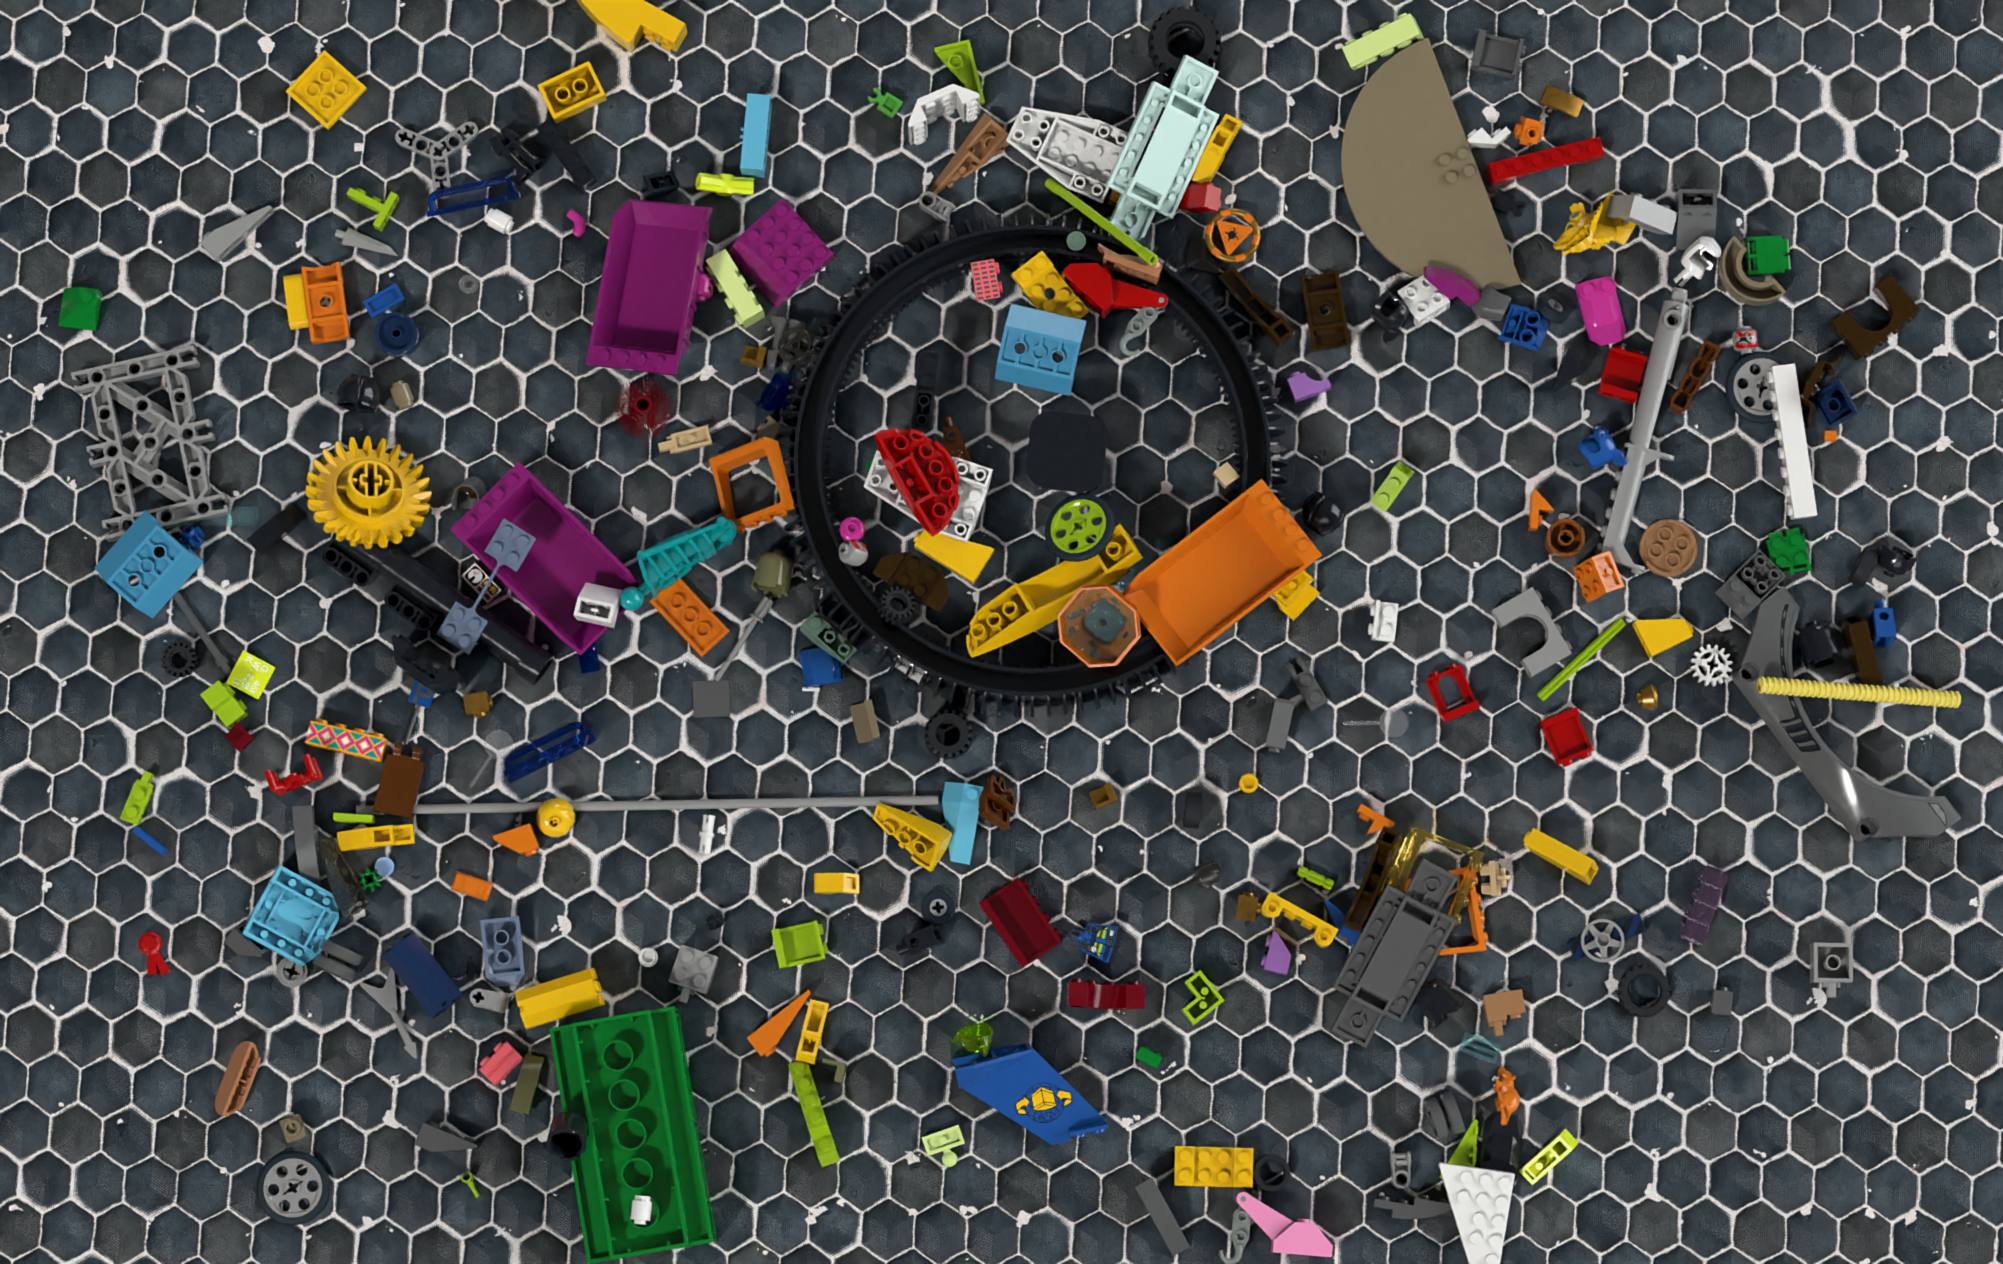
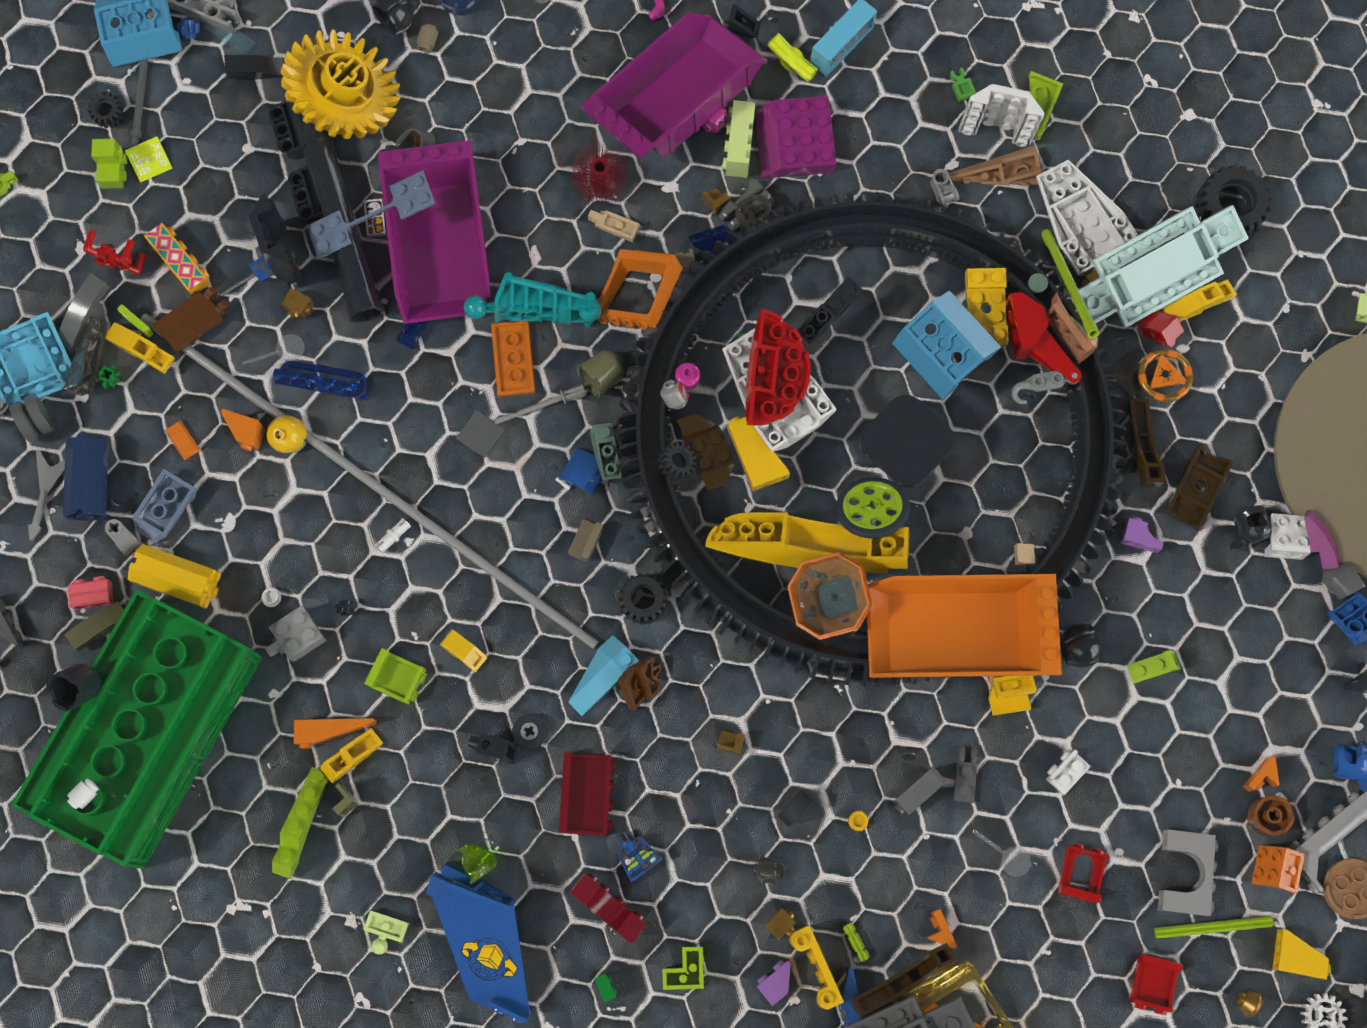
camera: 35 degrees right, 5 degrees down
(239, 737) = (102, 199): dark red panel -> none
(384, 866) = (129, 375): light blue piece -> none
(598, 605) = (445, 293): white slope -> none
(919, 836) = (558, 662): yellow wedge -> none
(956, 443) = (823, 371): reddish brown piece -> none
(985, 279) = (942, 260): coral brick -> none

